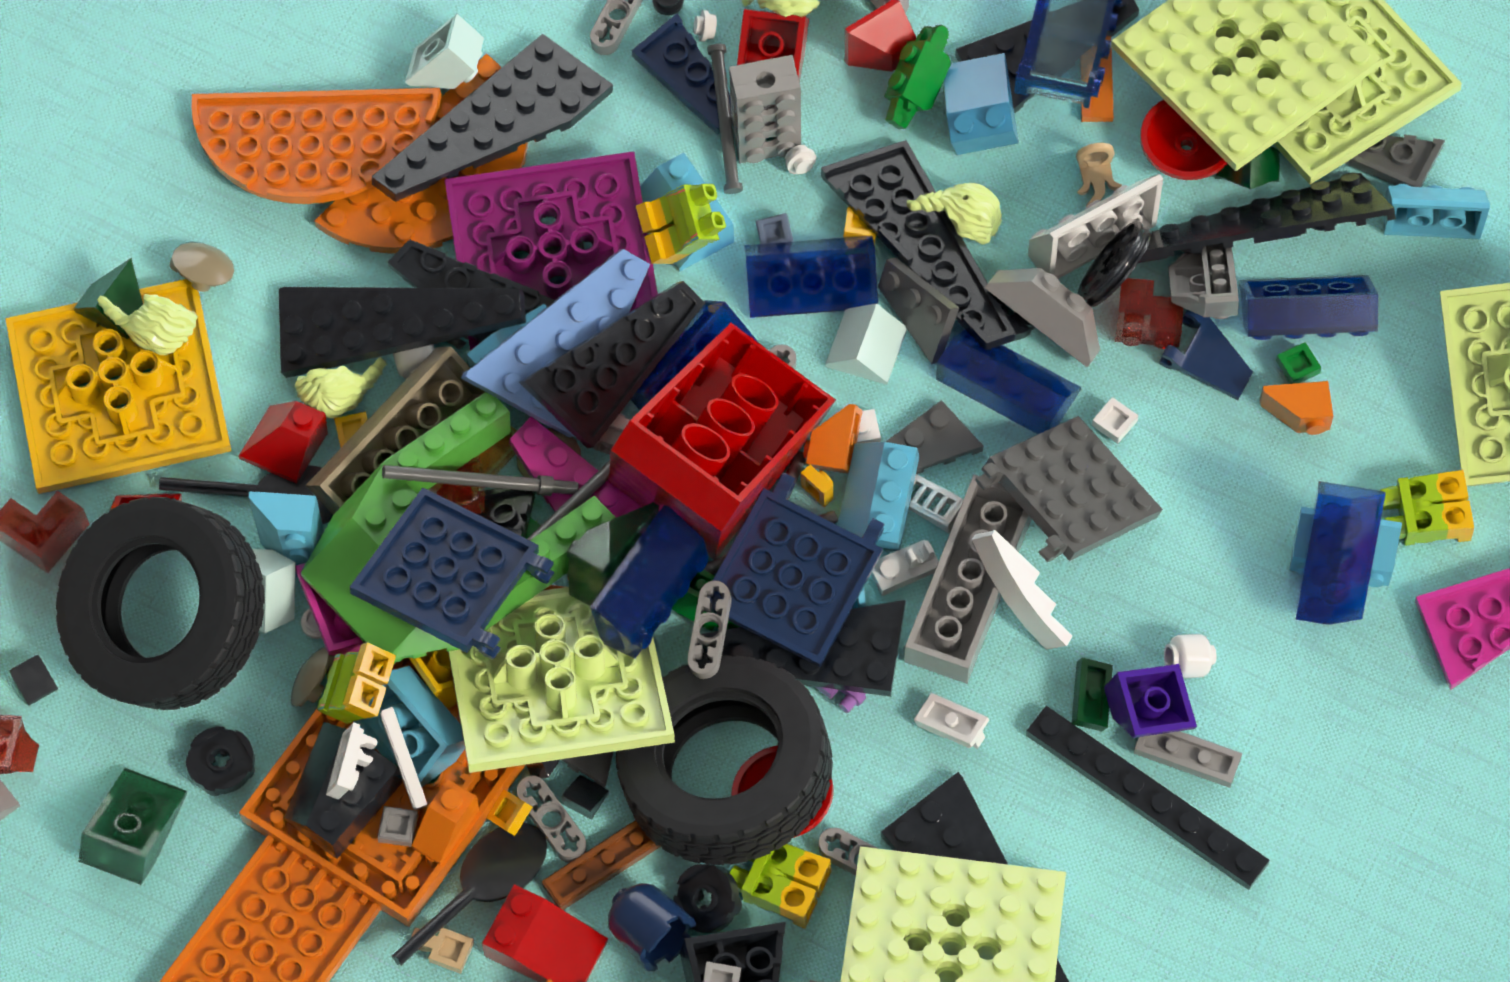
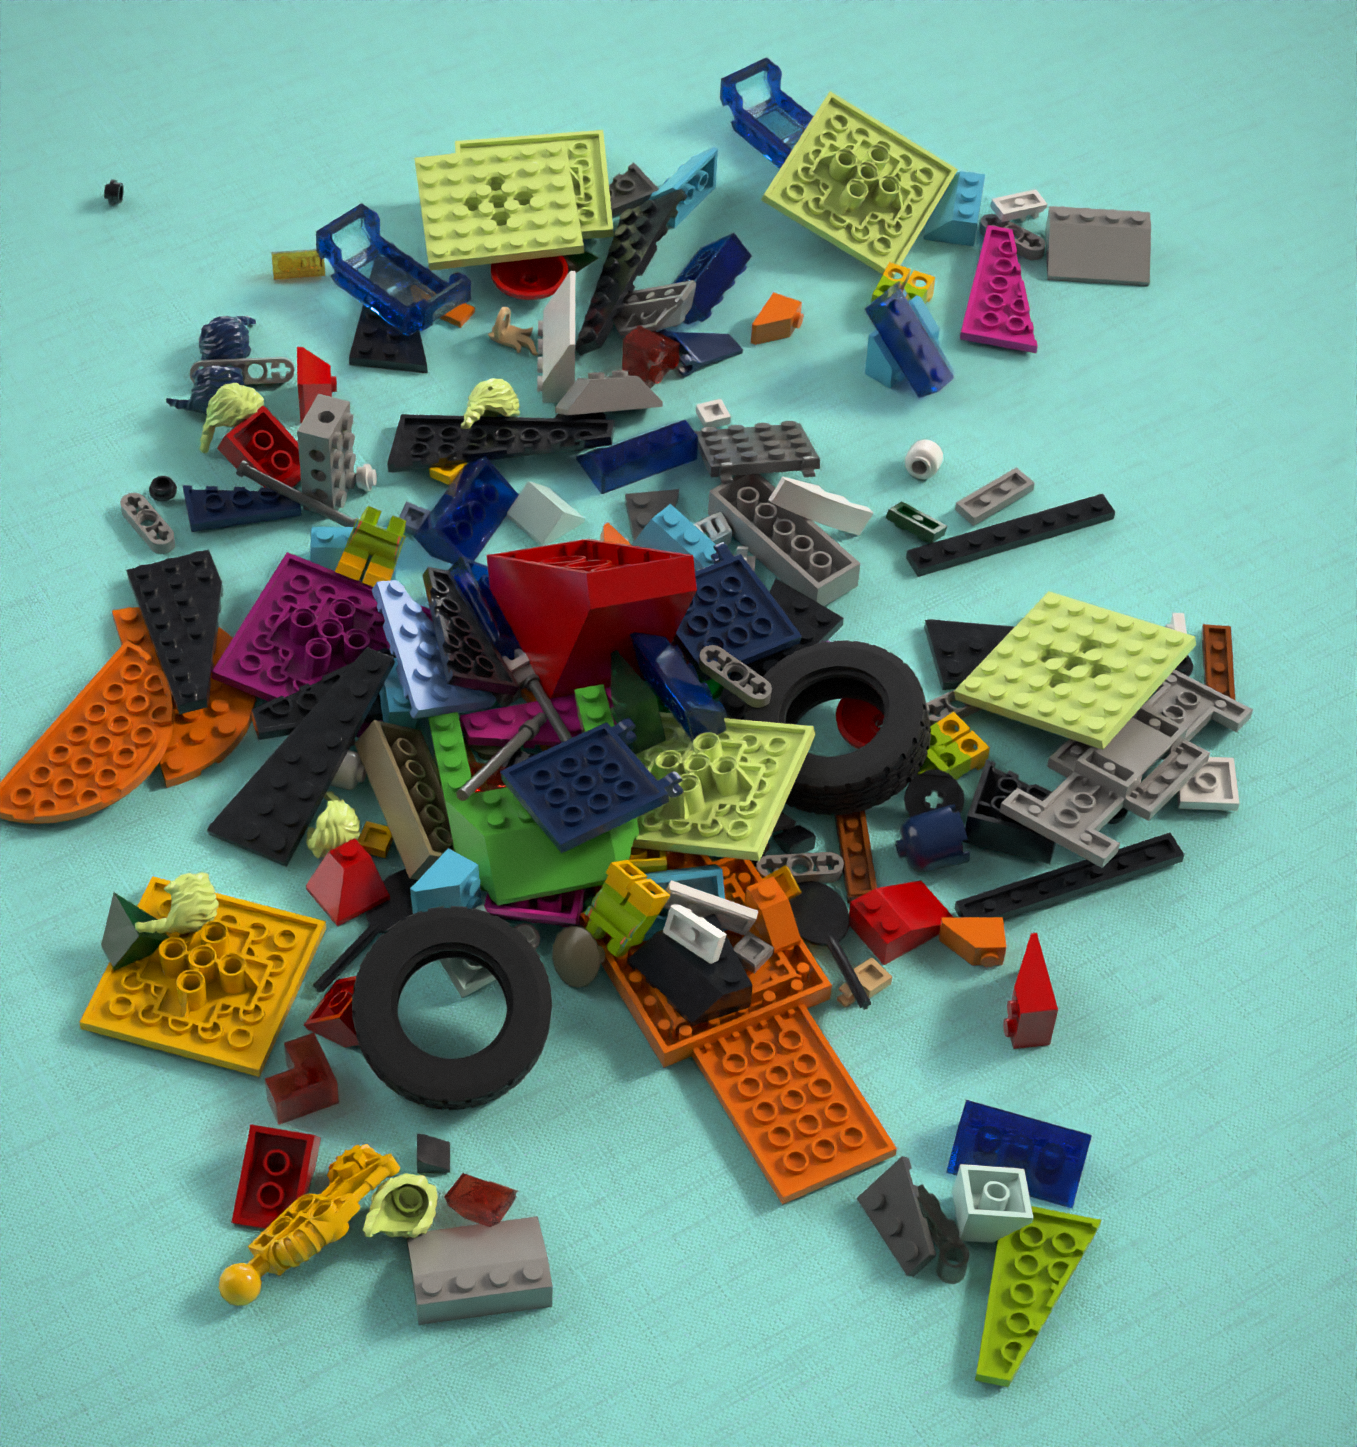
camera: 65 degrees left, 15 degrees down
(131, 826) = (620, 1141): clear green slope -> none
(202, 265) = (146, 866): dark tan dish -> none
(217, 779) = (596, 1071): black plate -> none
(446, 56) = (98, 629): light aqua slope -> none
(705, 25) = (206, 475): white plate -> none
(918, 76) = (359, 379): green hinge -> none
(919, 306) = (549, 465): dark grey wing -> none
(952, 721) = (886, 602): white plate -> none
(980, 105) = (410, 360): dark azure slope -> none
(1114, 263) = (608, 336): black wedge -> none
(1150, 701) = (950, 488): dark purple slope -> none
(1298, 364) = (743, 307): green plate -> none

